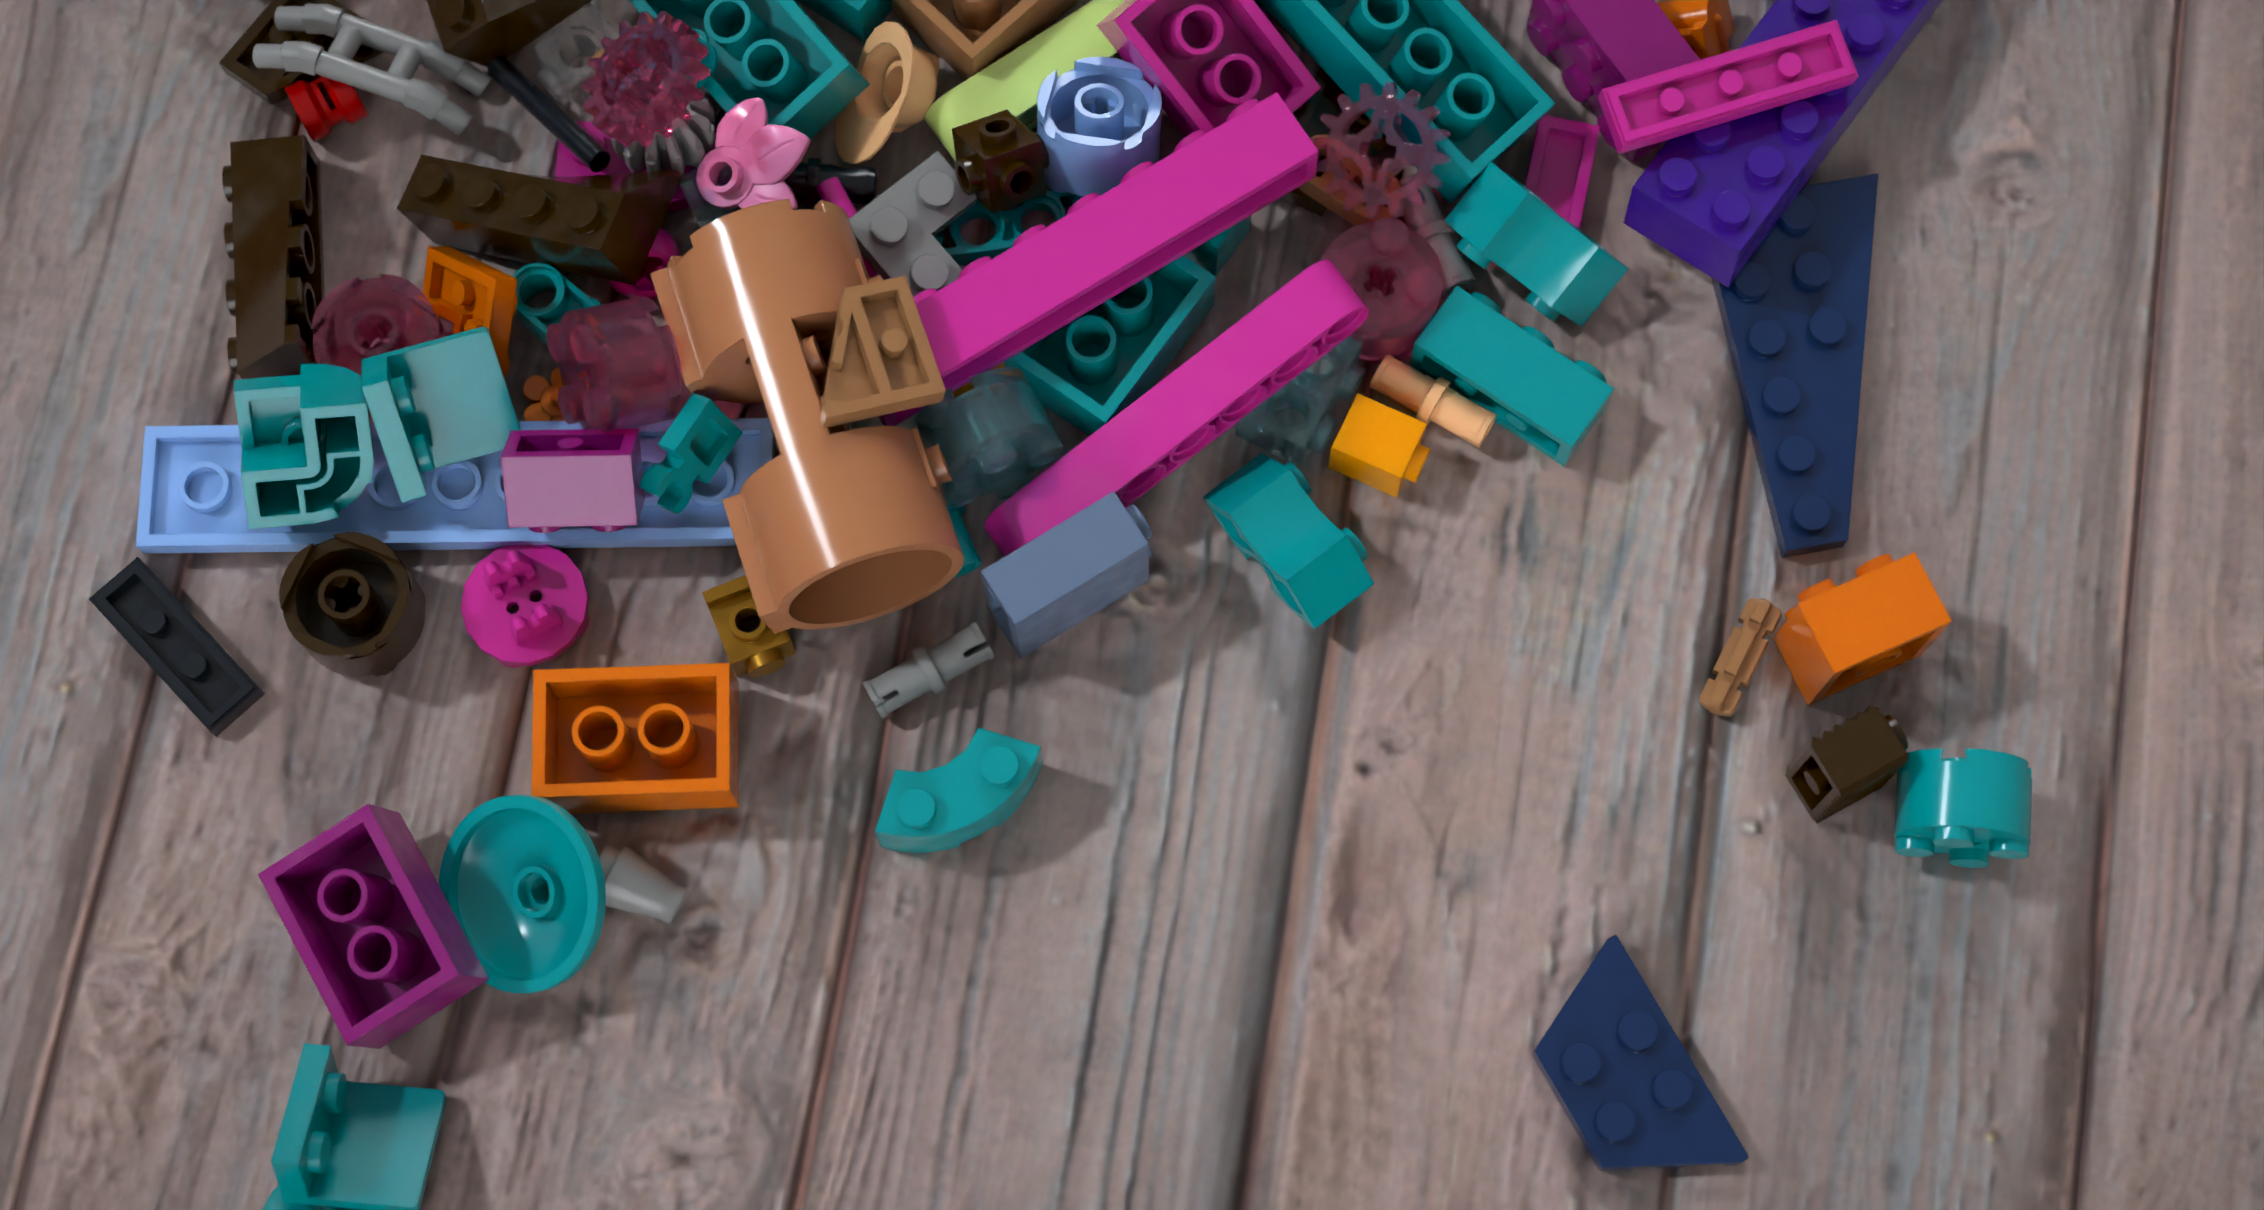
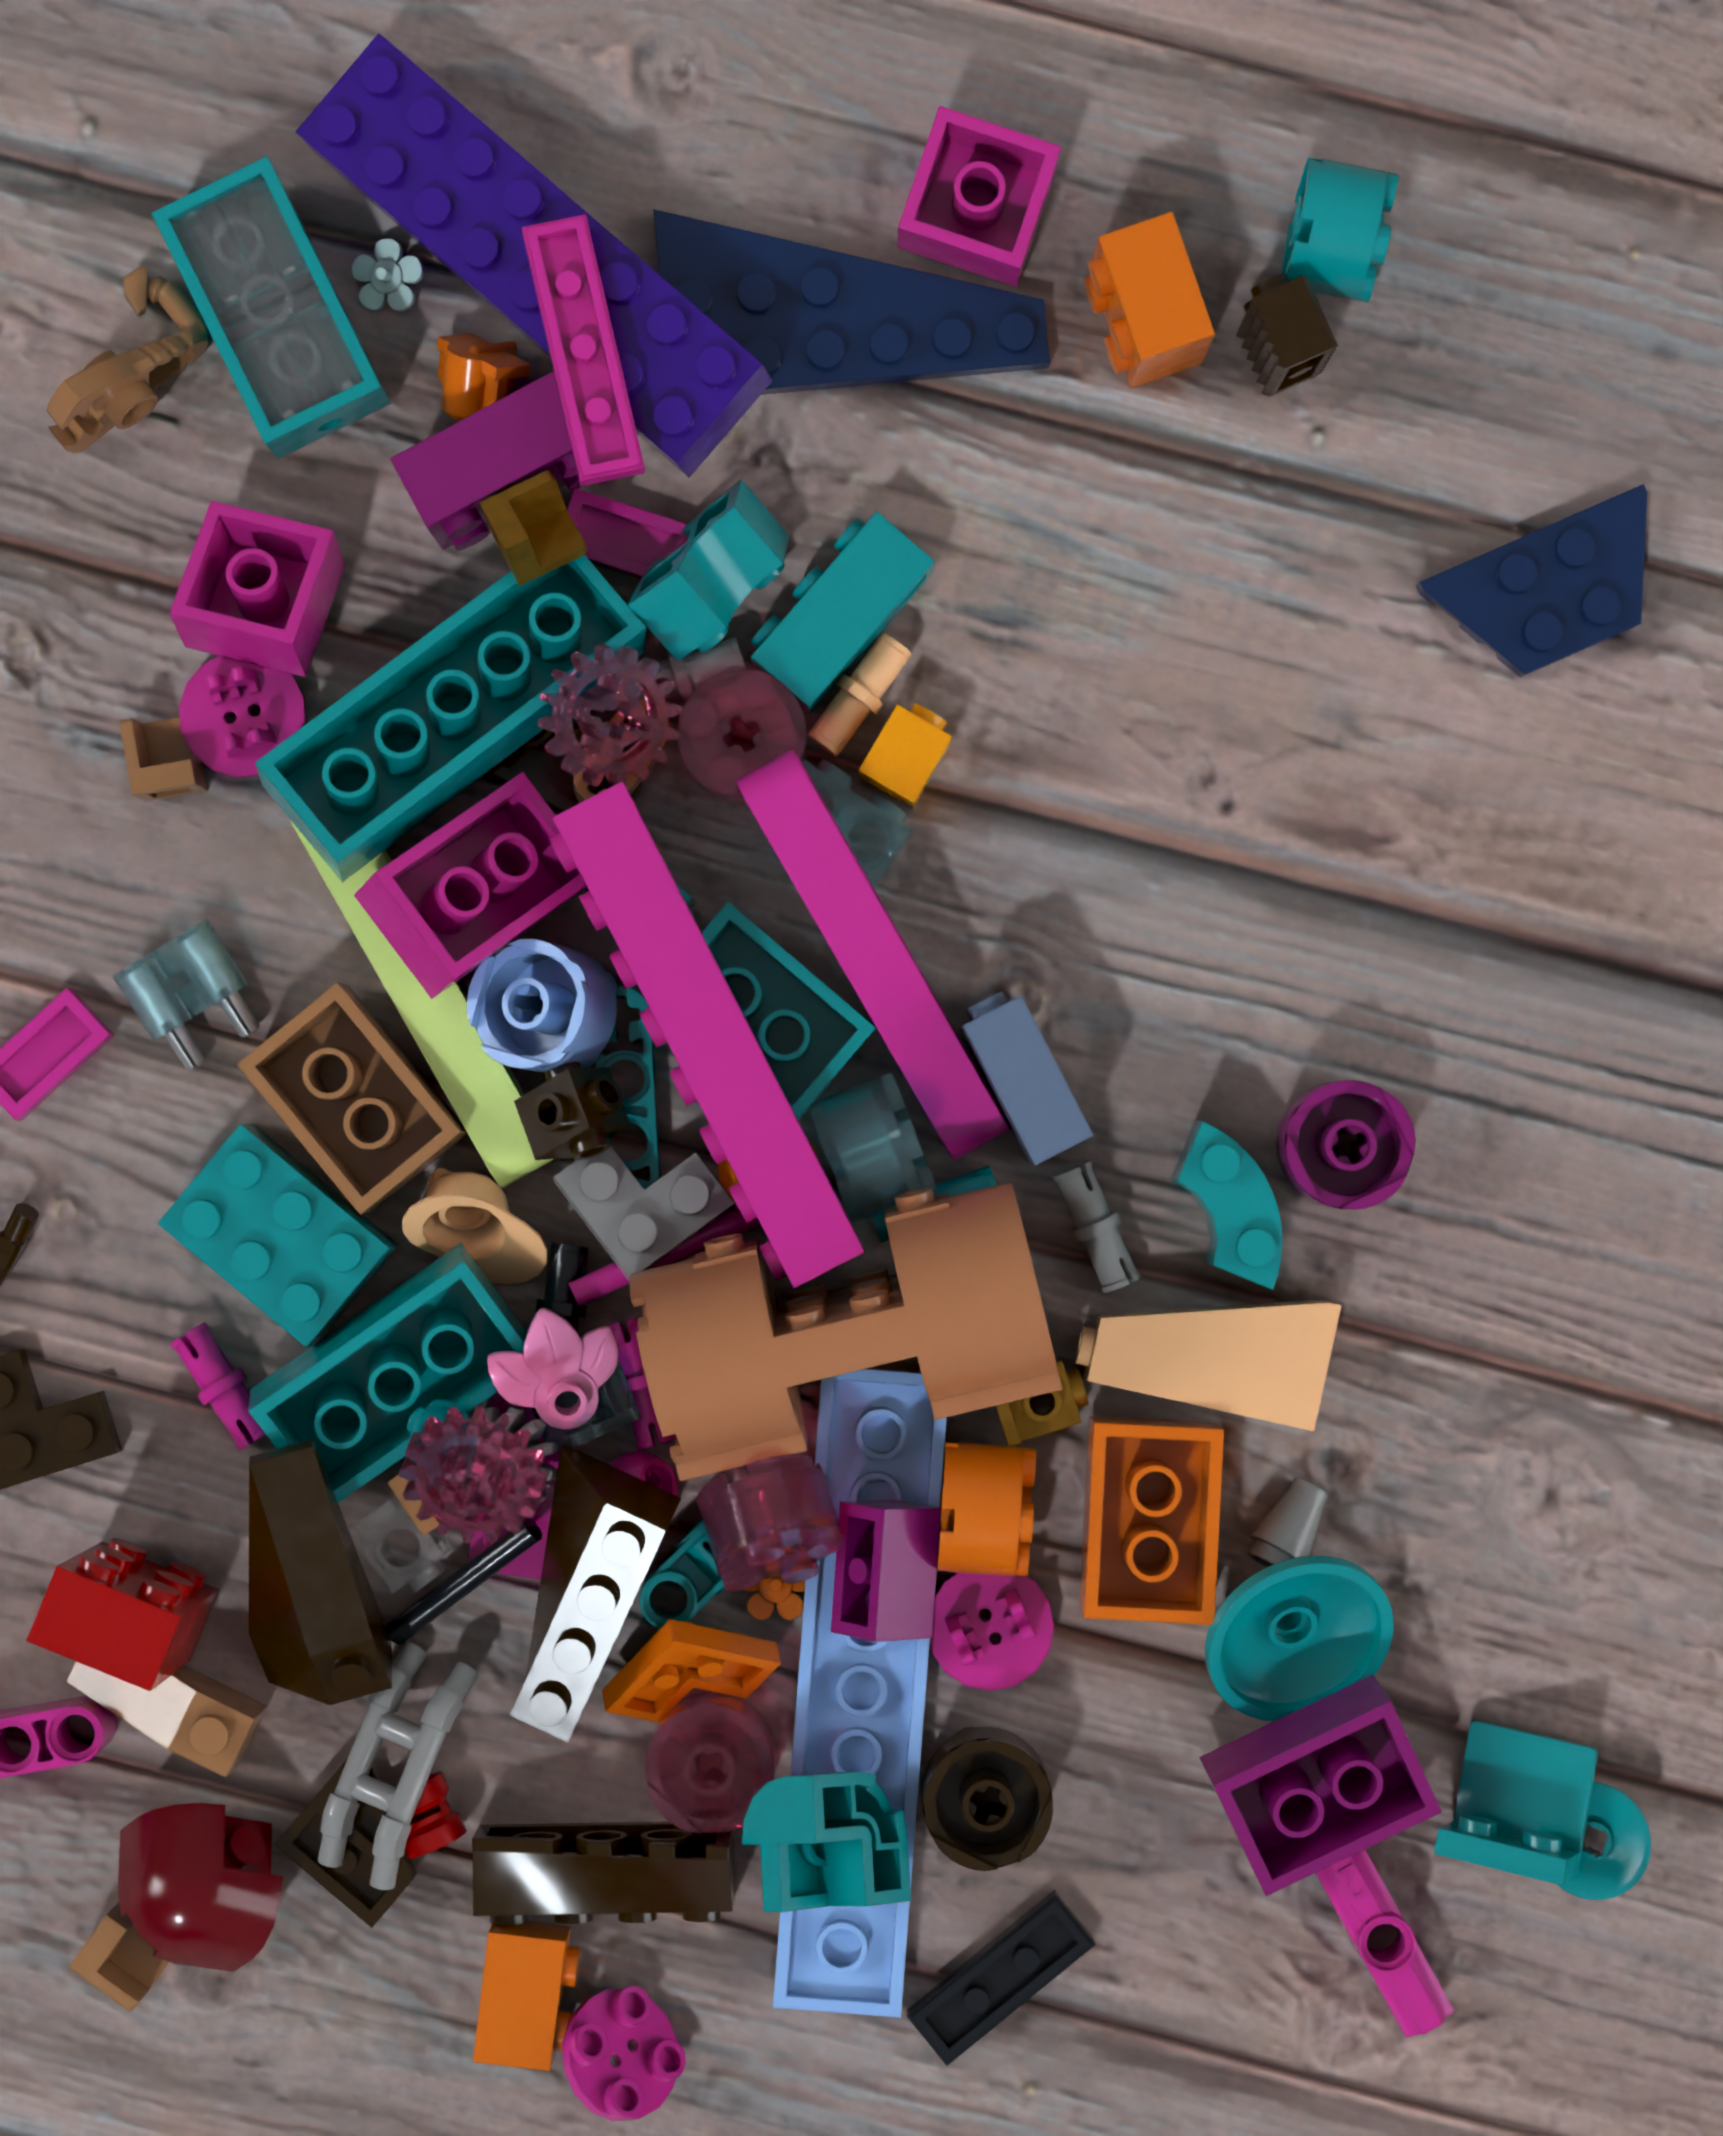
camera: 85 degrees left, 15 degrees up
(76, 308) = (640, 2076): none -> dark pink plate
(155, 198) = (523, 1995): none -> orange brick
(183, 1032) = (1401, 1968): none -> dark pink piece
(438, 405) = (797, 1707): teal bracket -> none
(638, 573) = (986, 1509): none -> orange brick
(694, 449) = (859, 1448): teal plate -> none
(802, 809) = (1229, 1358): none -> light nougat slope
(878, 356) = (818, 1251): medium nougat wing -> none
(1043, 865) = (1379, 1158): none -> magenta brick
(1301, 551) = (997, 855): teal brick -> none
(1553, 65) = (533, 527): none -> pearl gold panel
(1740, 657) = (1152, 423): medium nougat axle -> none
(1939, 460) = (978, 196): none -> dark pink brick

